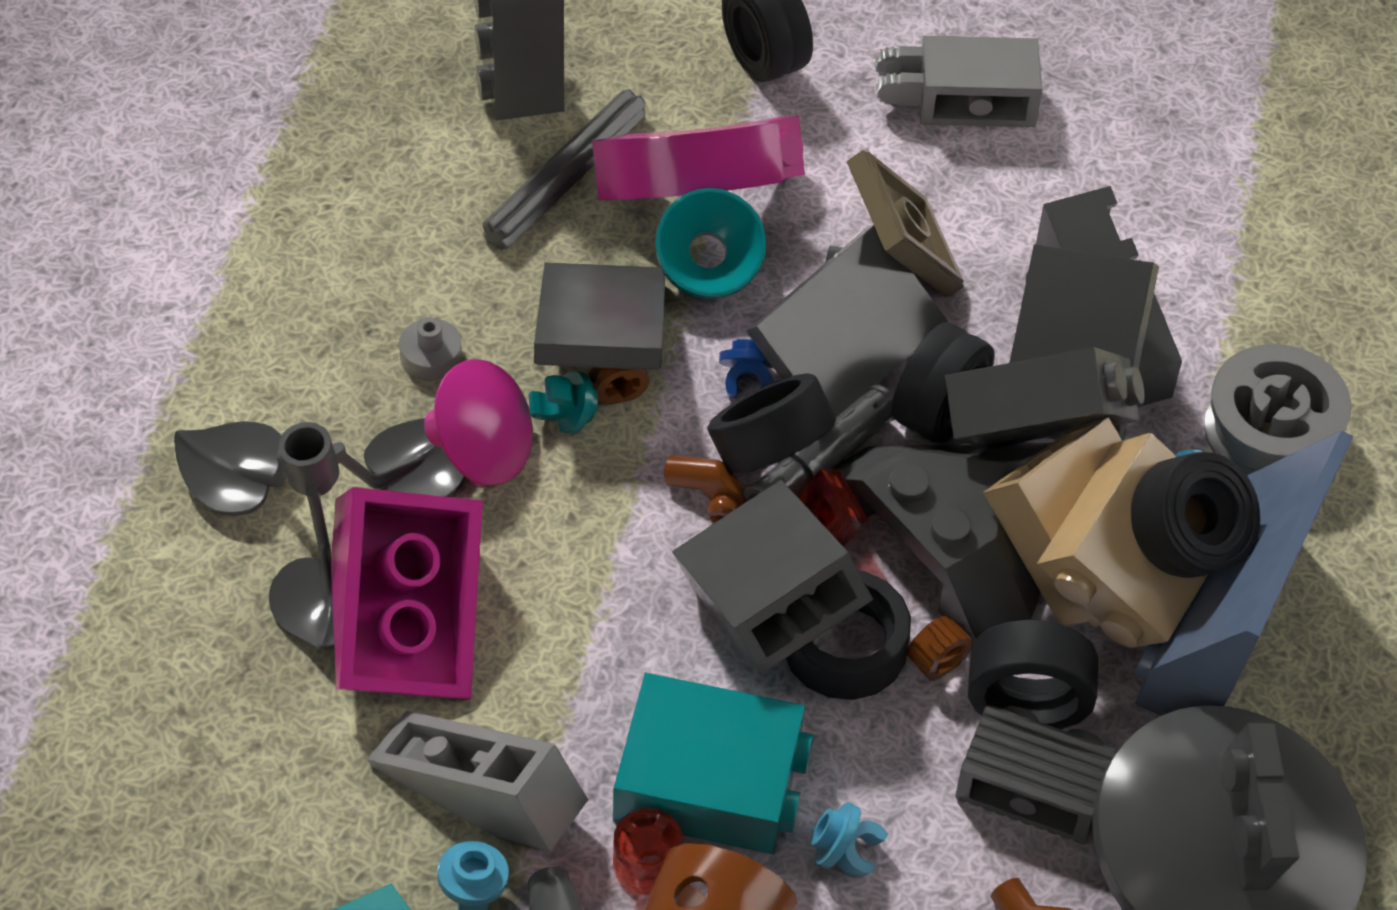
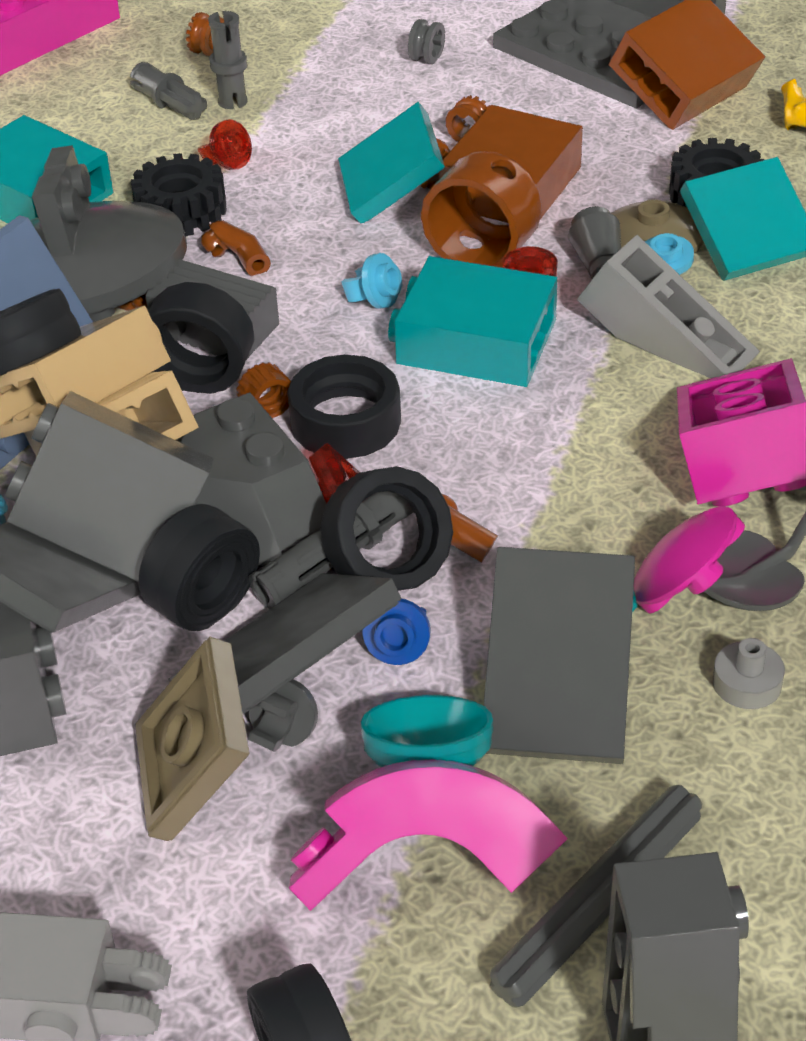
camera: 170 degrees left, 10 degrees down
(772, 576) = (410, 391): dark grey brick -> none

